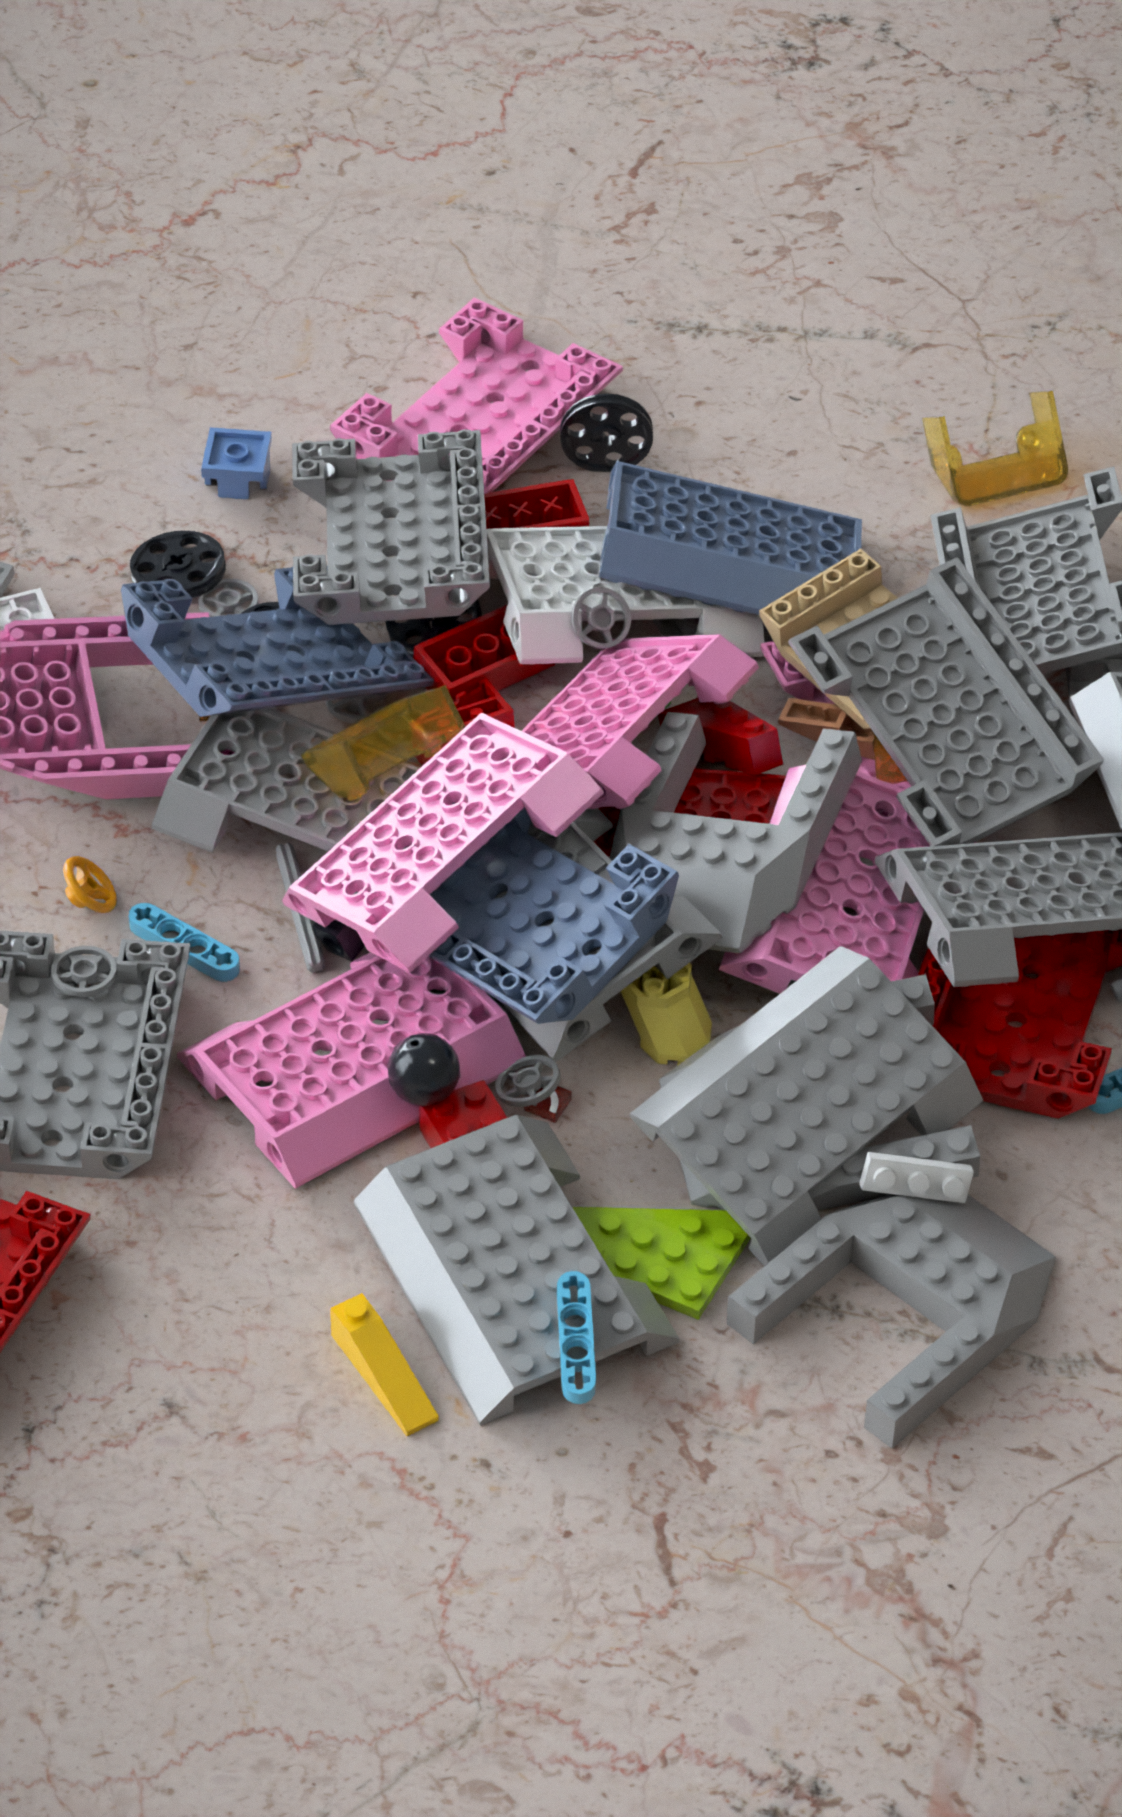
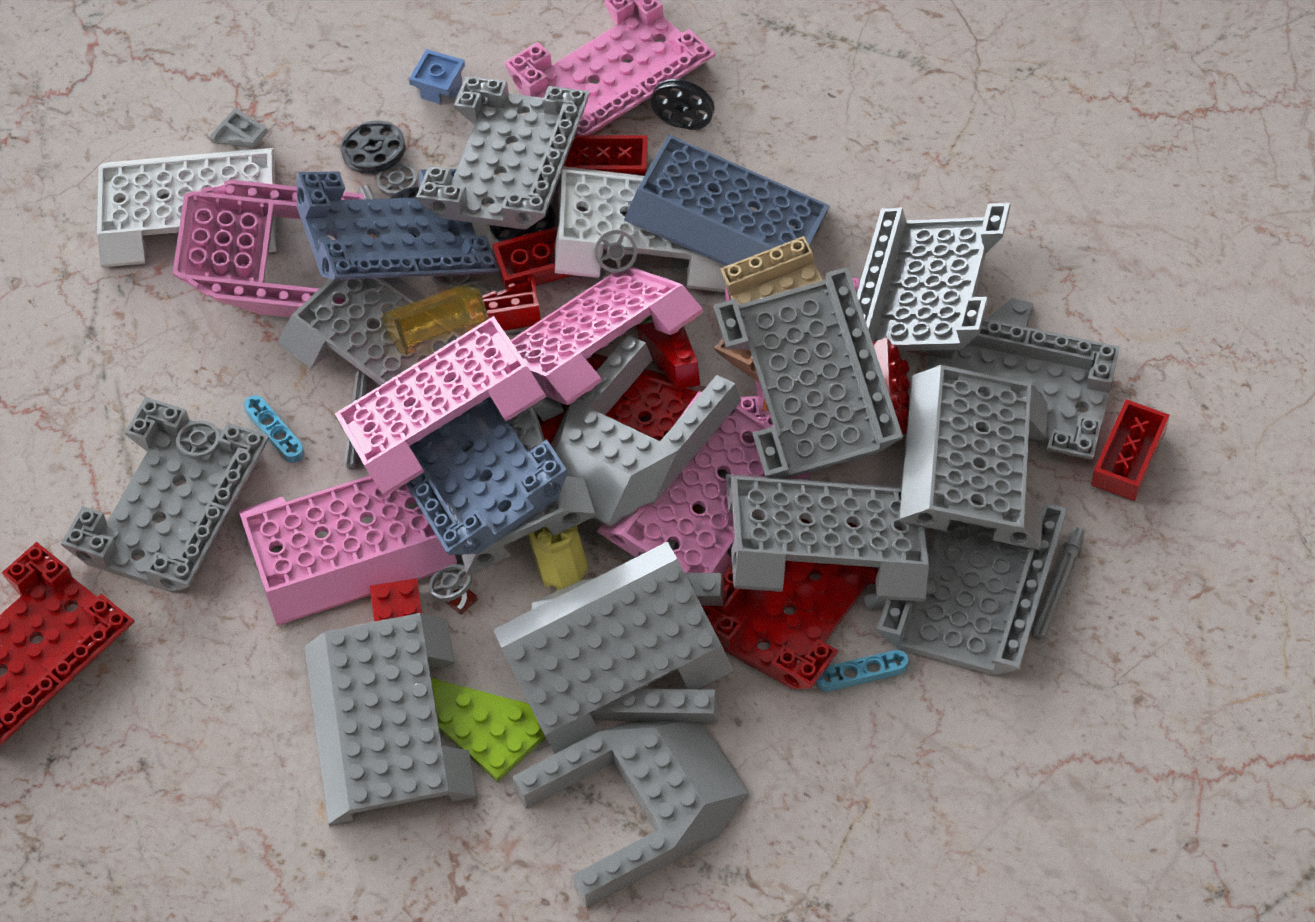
camera: 20 degrees right, 10 degrees up
(84, 888) = (224, 377): light orange piece -> none
(381, 1364) = (280, 769): yellow slope -> none
(423, 1069) = (373, 566): black piece -> none
(573, 1337) = (395, 785): medium azure beam -> none
(916, 1177) = (667, 718): white plate -> none
(1035, 466) = (949, 184): clear yellow windscreen -> none

